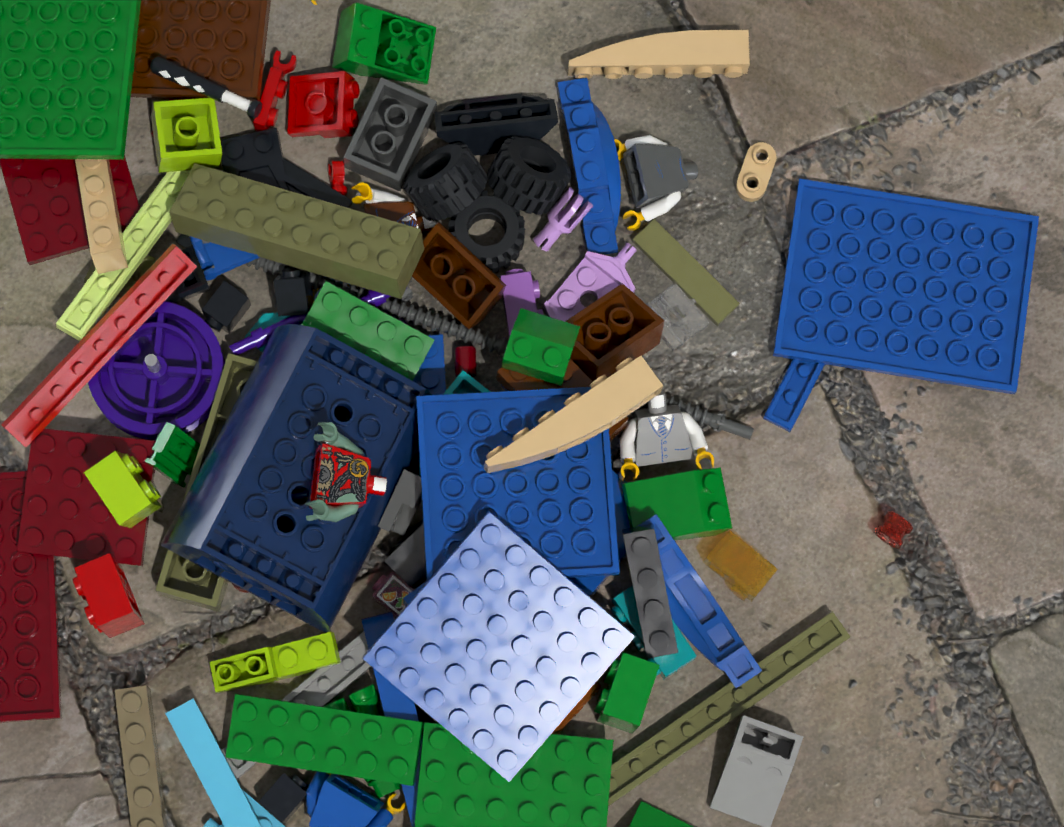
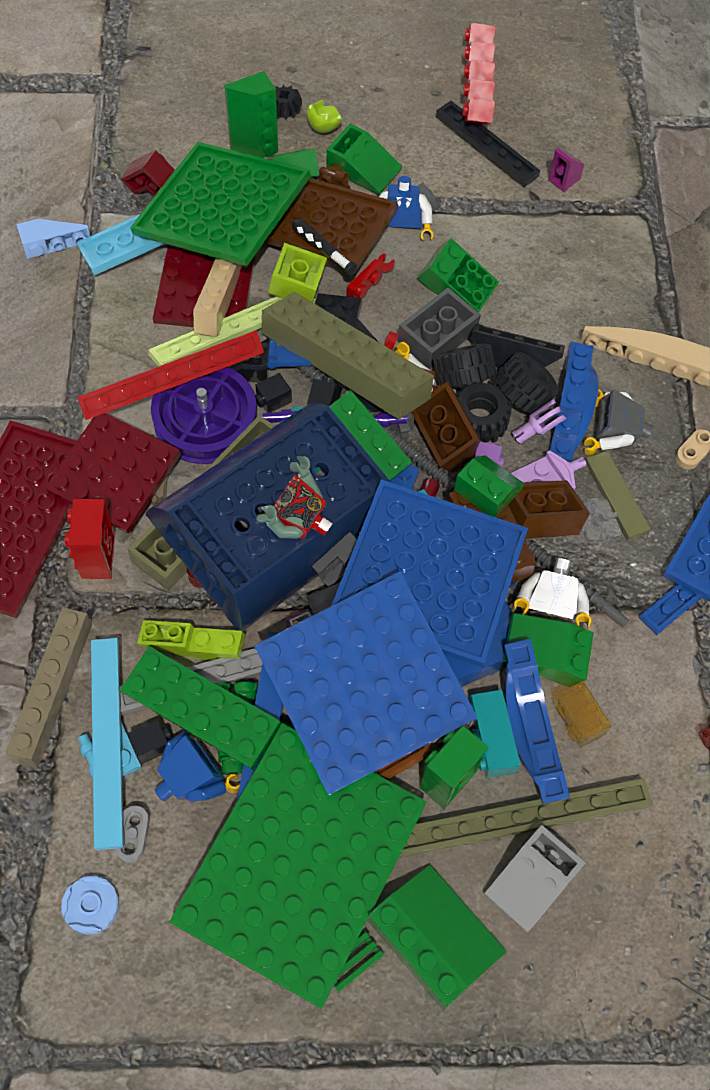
camera: 25 degrees right, 15 degrees down
(123, 488) = (137, 463): lime brick -> none
(174, 454) = (186, 463): green plate -> none
(322, 105) = (399, 295): red plate -> none
(582, 416) = (499, 539): tan slope -> none
(650, 591) = (503, 692): black brick -> none

